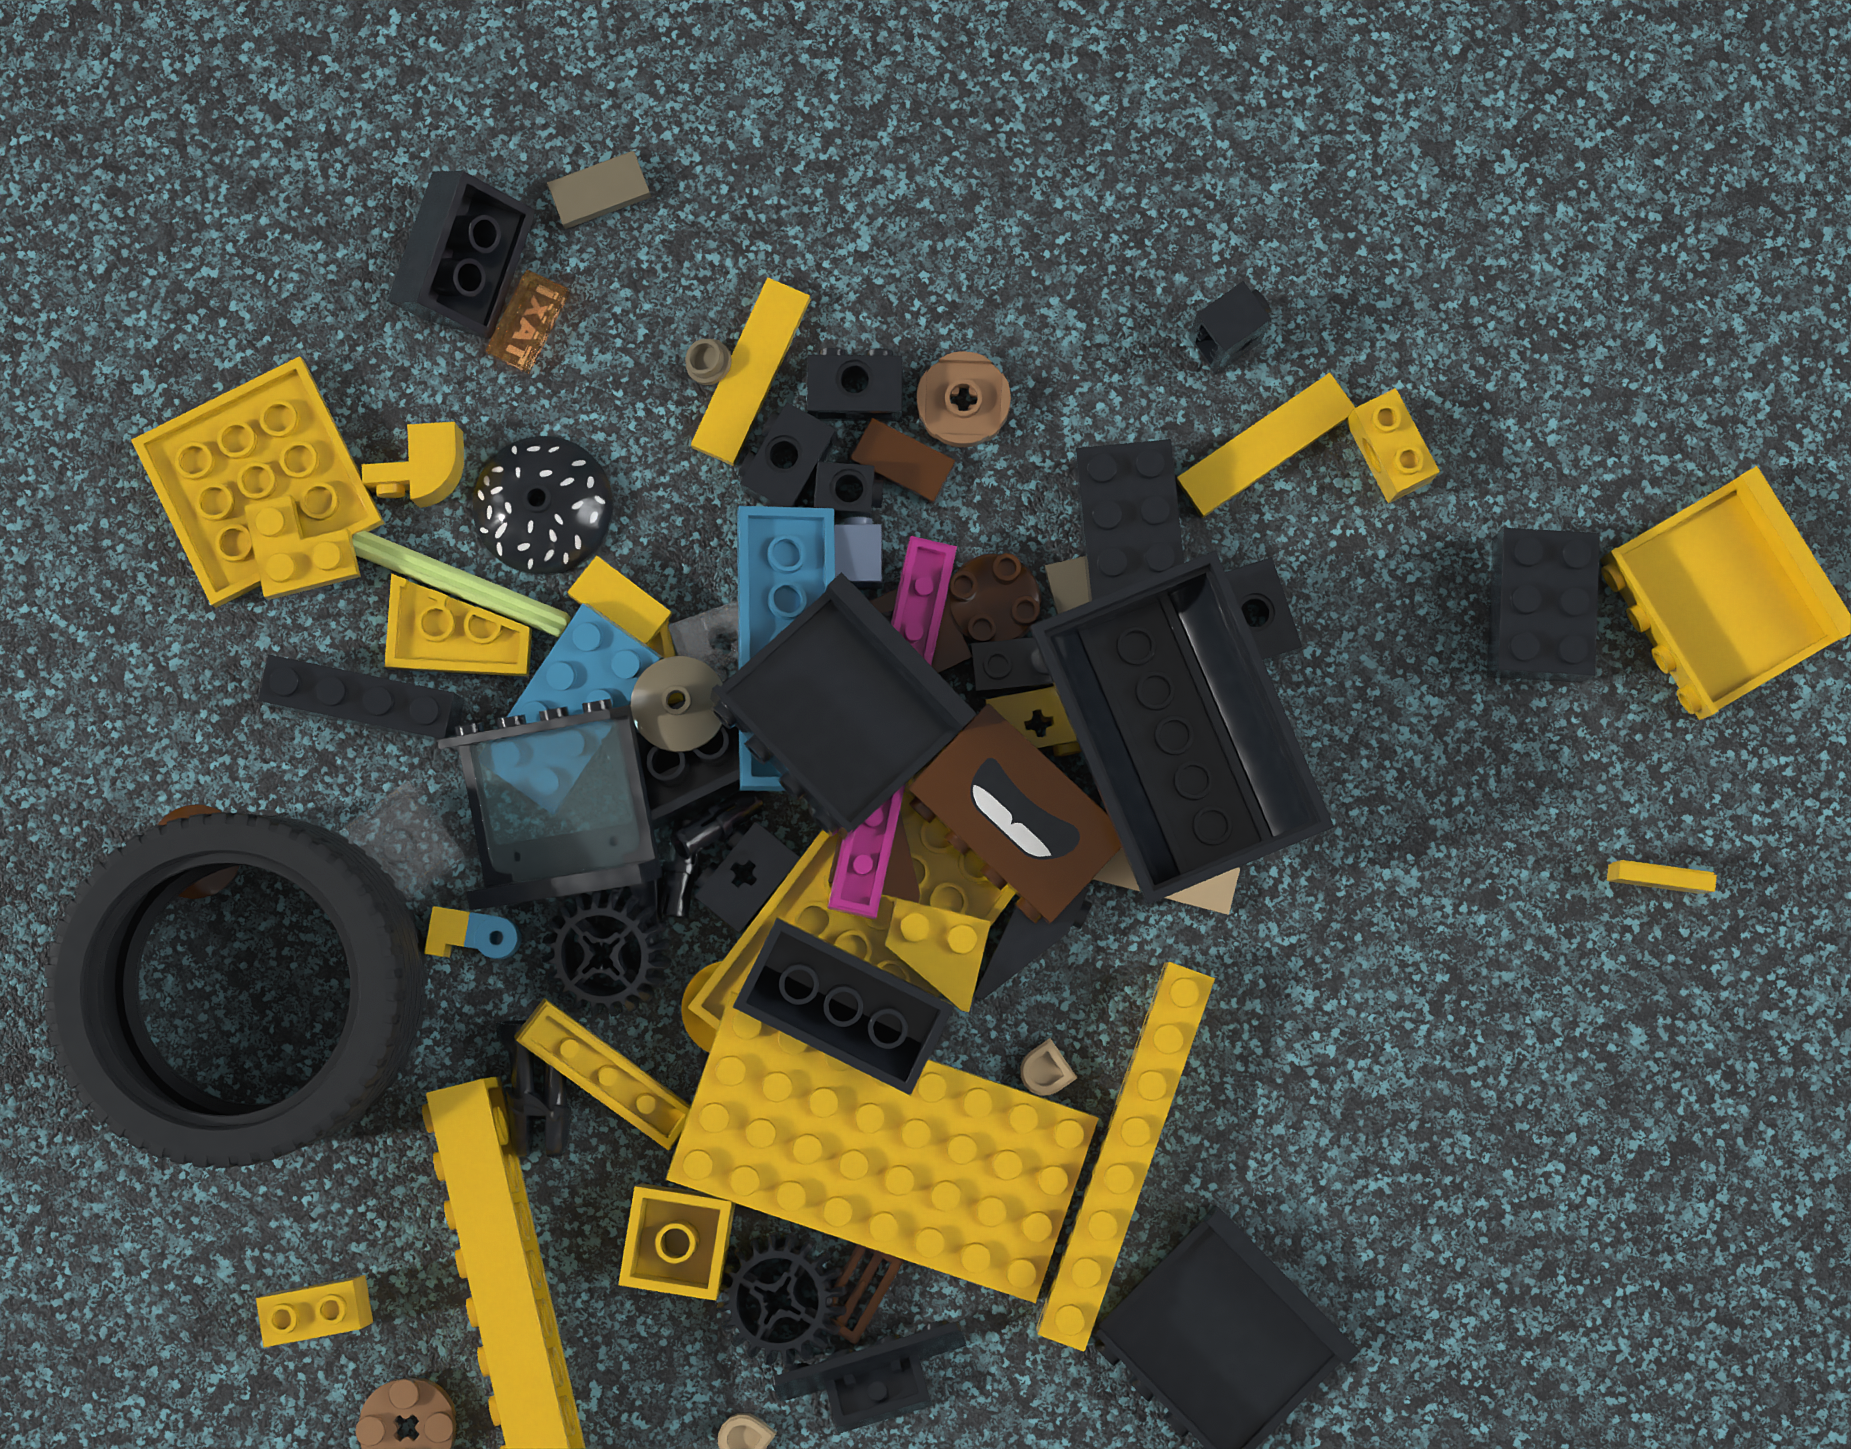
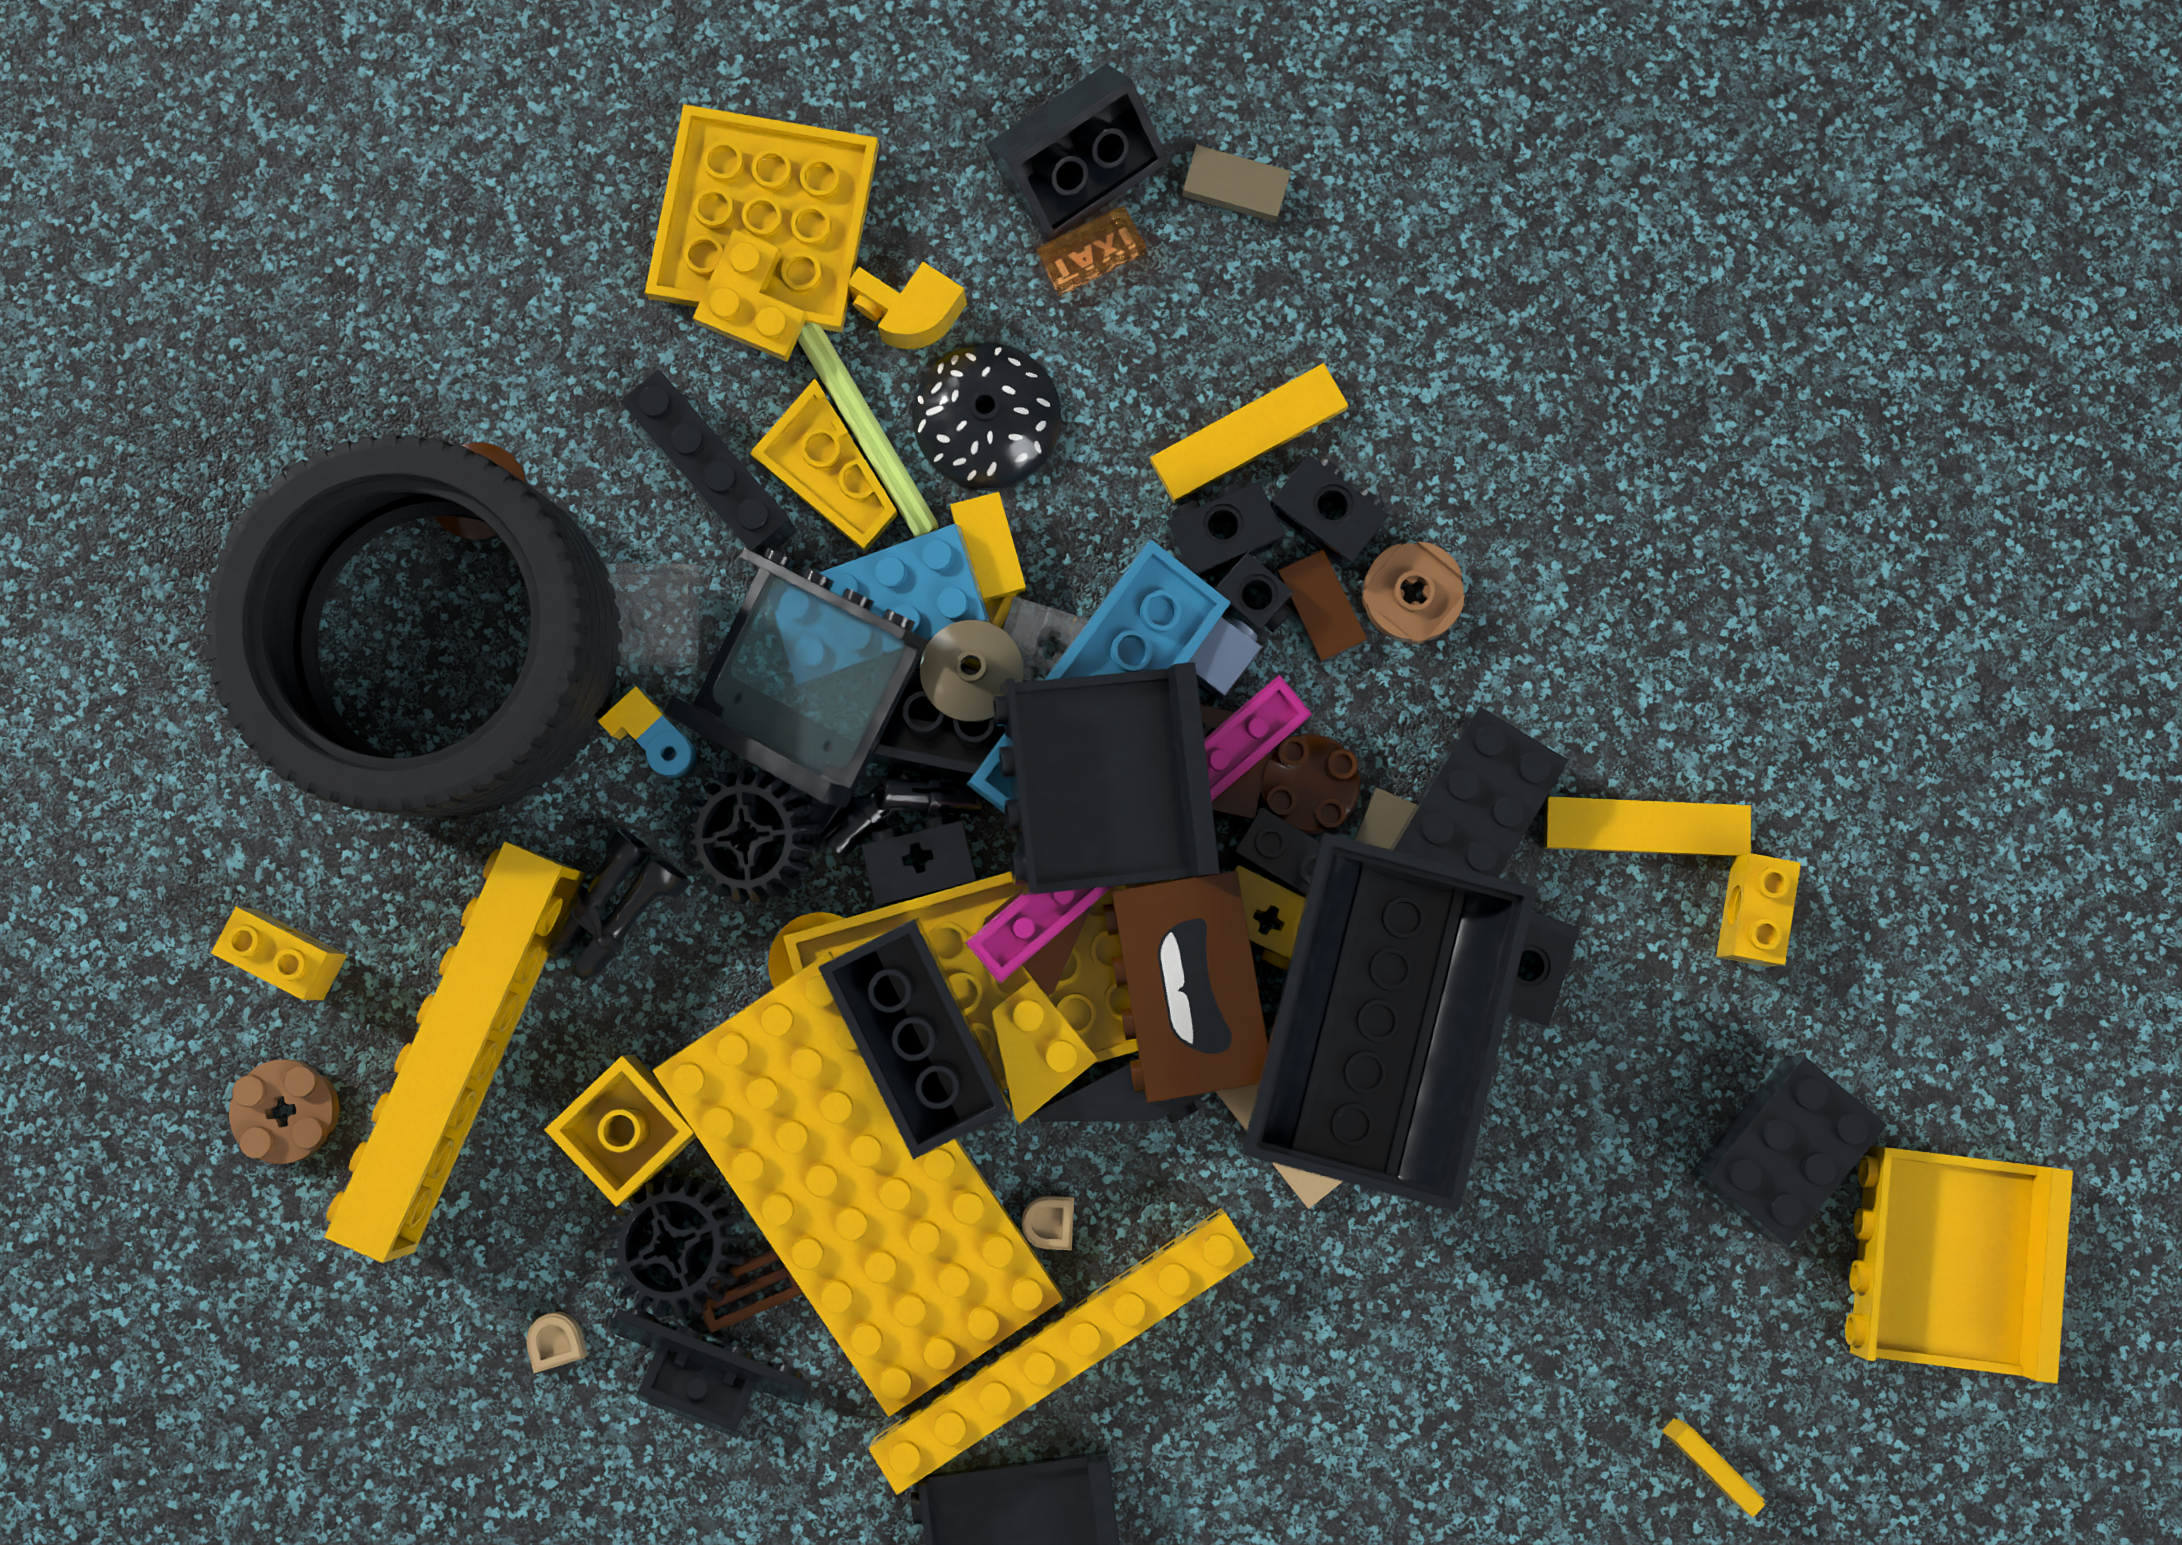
camera: 30 degrees right, 0 degrees up
(604, 1073) = (671, 938): yellow tile -> none
(708, 361) = (1218, 397): dark tan plate -> none
(1230, 326) = (1695, 701): black brick -> none

